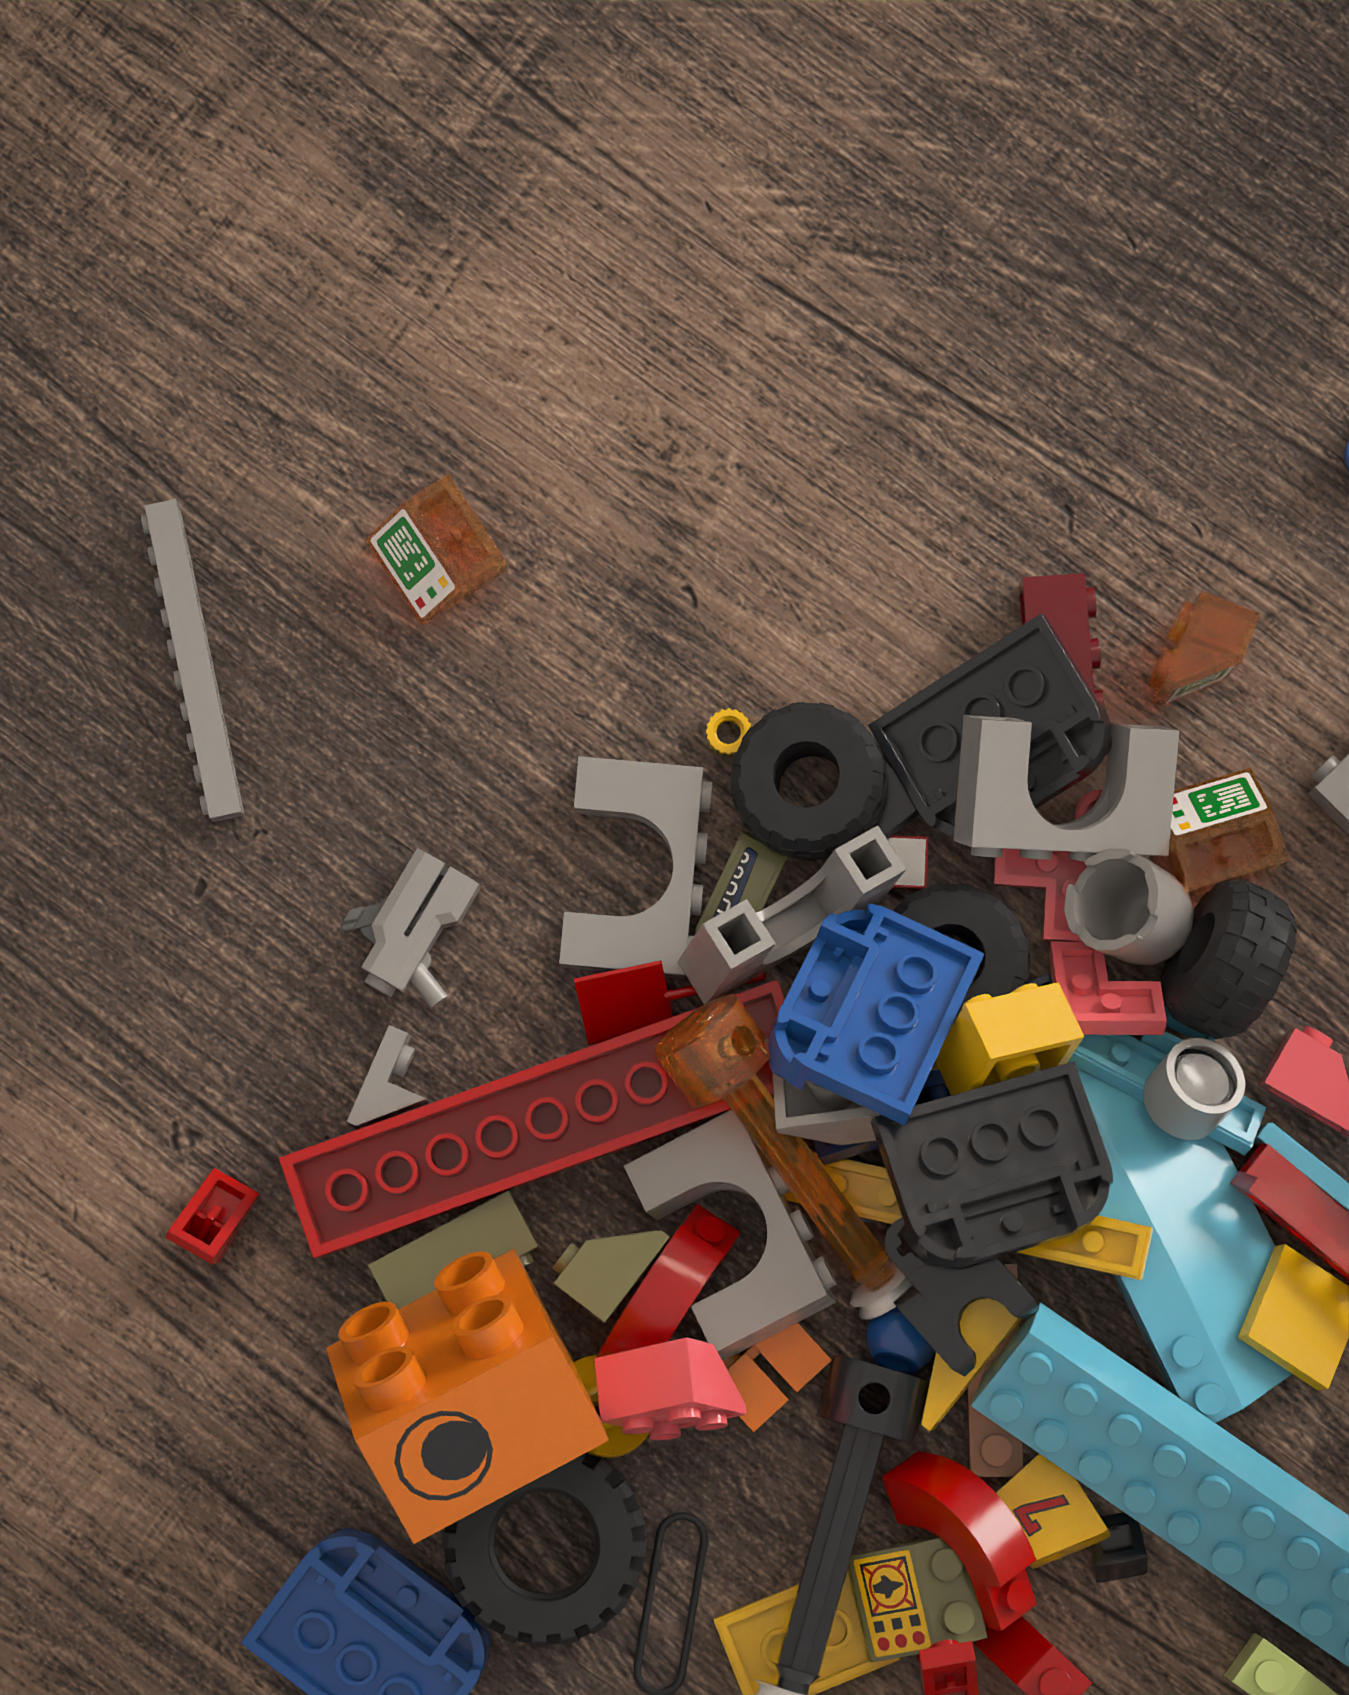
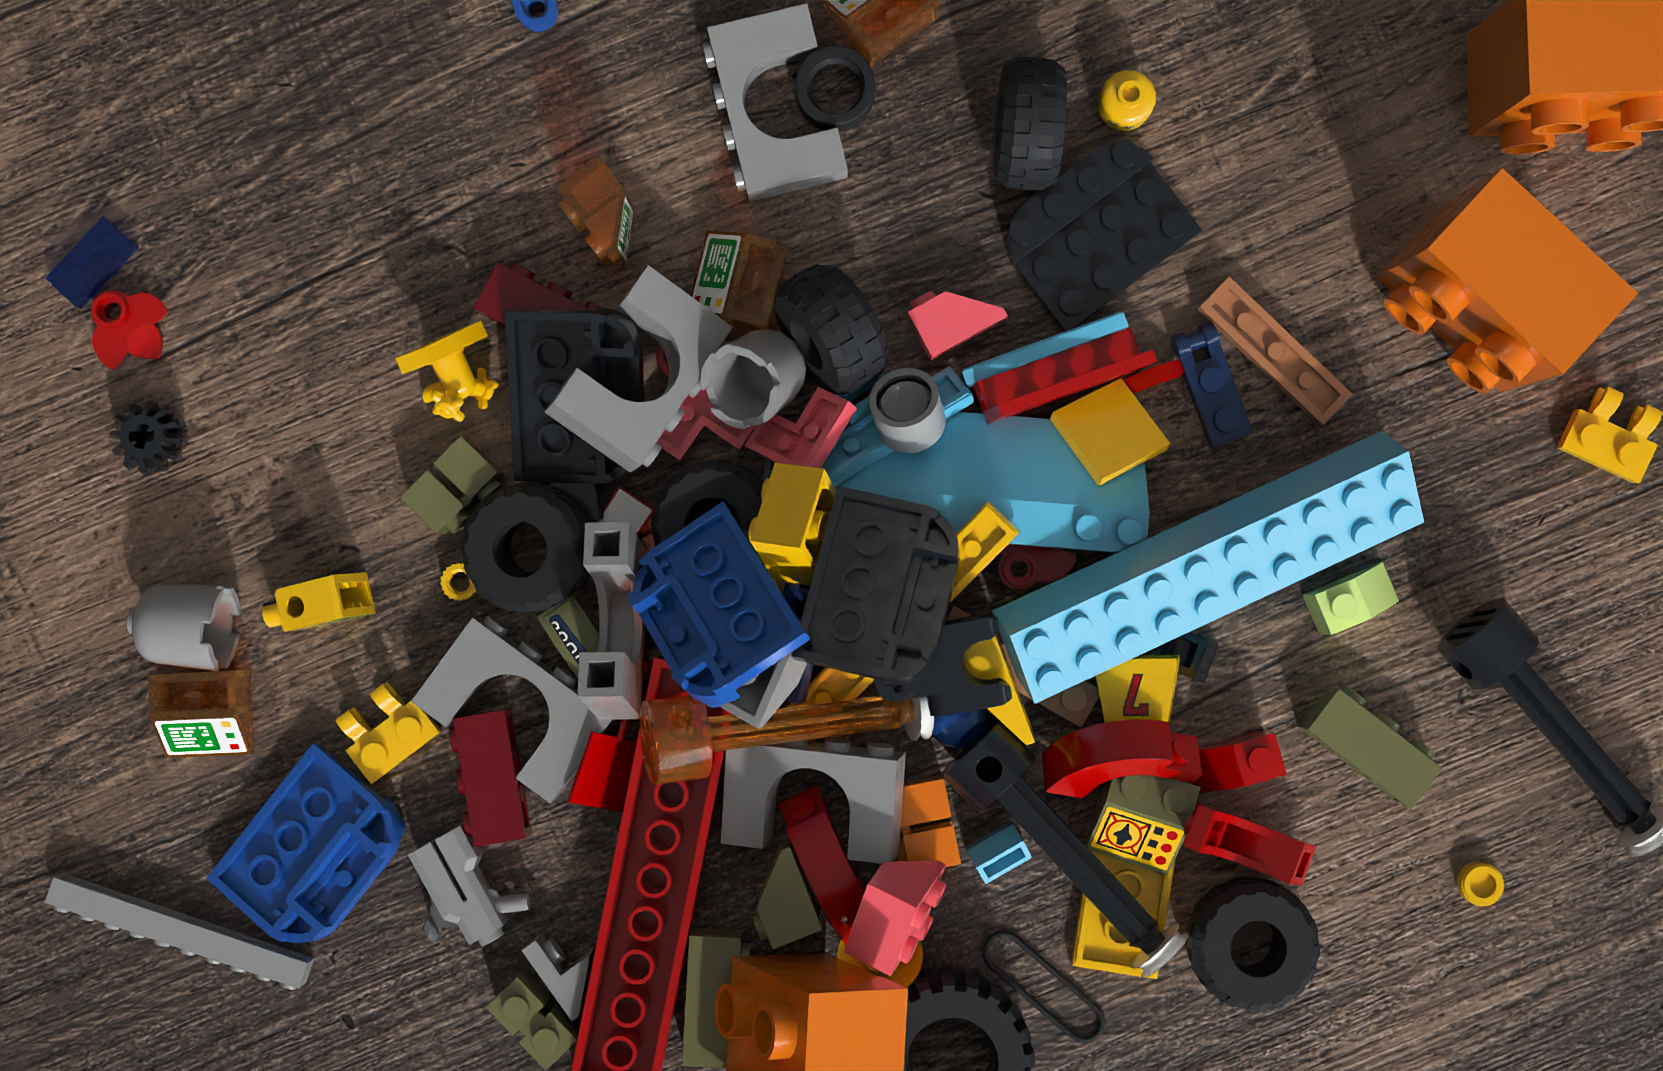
camera: 55 degrees left, 5 degrees up
(315, 1103) = (519, 1009): none -> olive piece
(358, 745) = (310, 850): none -> blue plate
(517, 479) = (186, 625): none -> light grey cylinder
(521, 760) = (392, 740): none -> yellow plate
(546, 884) = (488, 777): none -> dark red brick
(622, 601) = (320, 602): none -> yellow torso
(691, 308) = (147, 421): none -> black gear
(780, 241) = (130, 332): none -> red plate
(798, 660) = (438, 502): none -> olive piece
(800, 1468) = (998, 852): none -> medium azure piece
(827, 159) = (92, 262): none -> clear blue tile
(944, 595) = (452, 371): none -> yellow piece
(1117, 1328) = (1041, 565): none -> red plate

